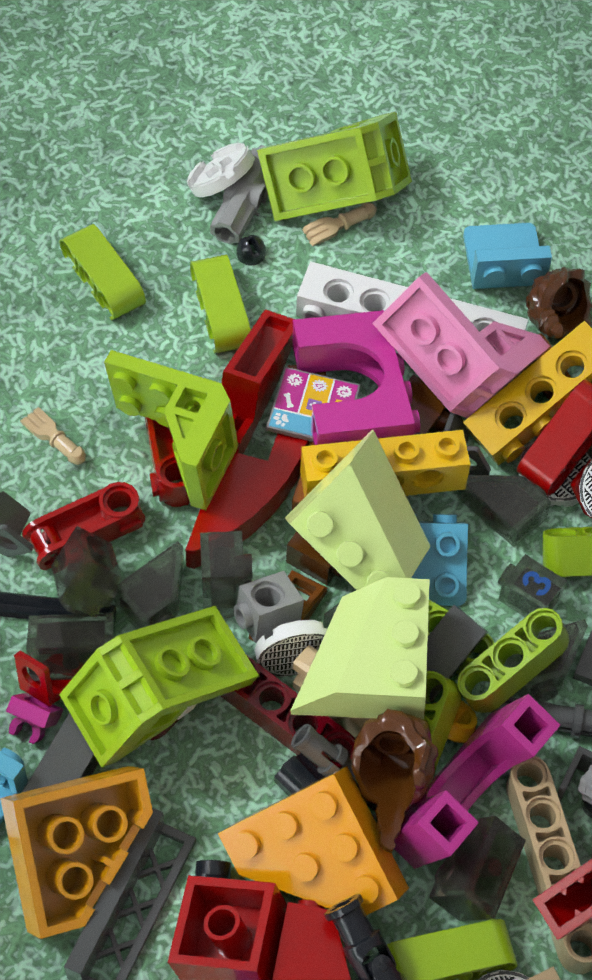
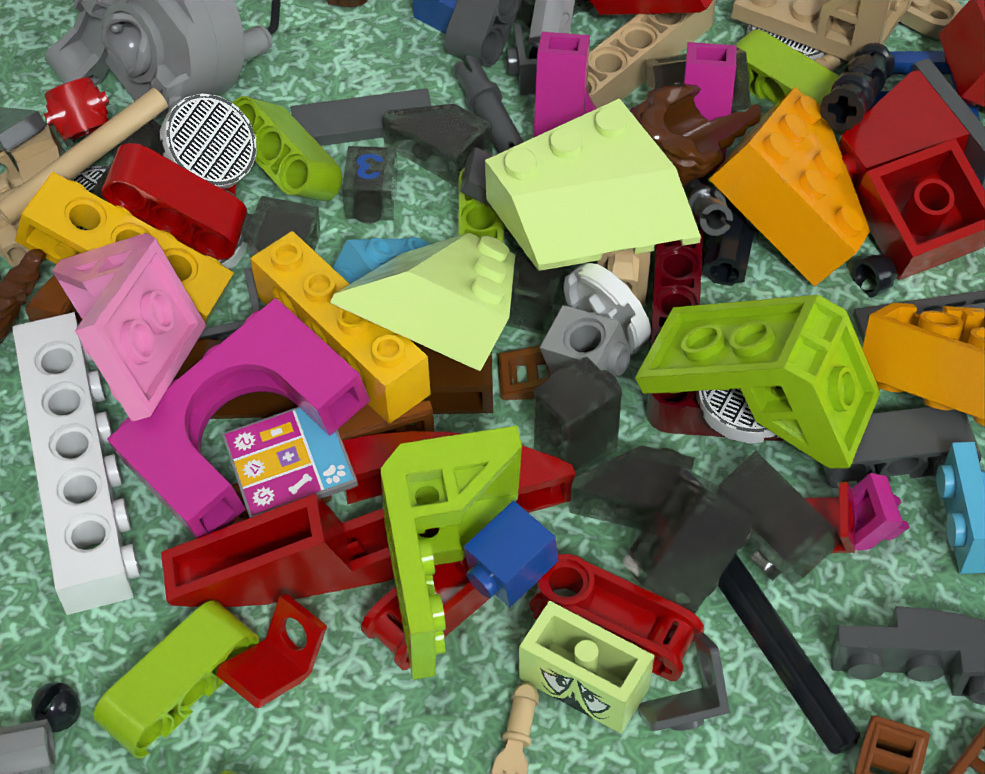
camera: 120 degrees left, 5 degrees down
(59, 478) = (585, 666): none -> yellowish green brick
(147, 465) = (510, 555): none -> blue brick
(193, 343) = (276, 662): none -> red bracket
(519, 640) = (466, 108): lime beam -> none

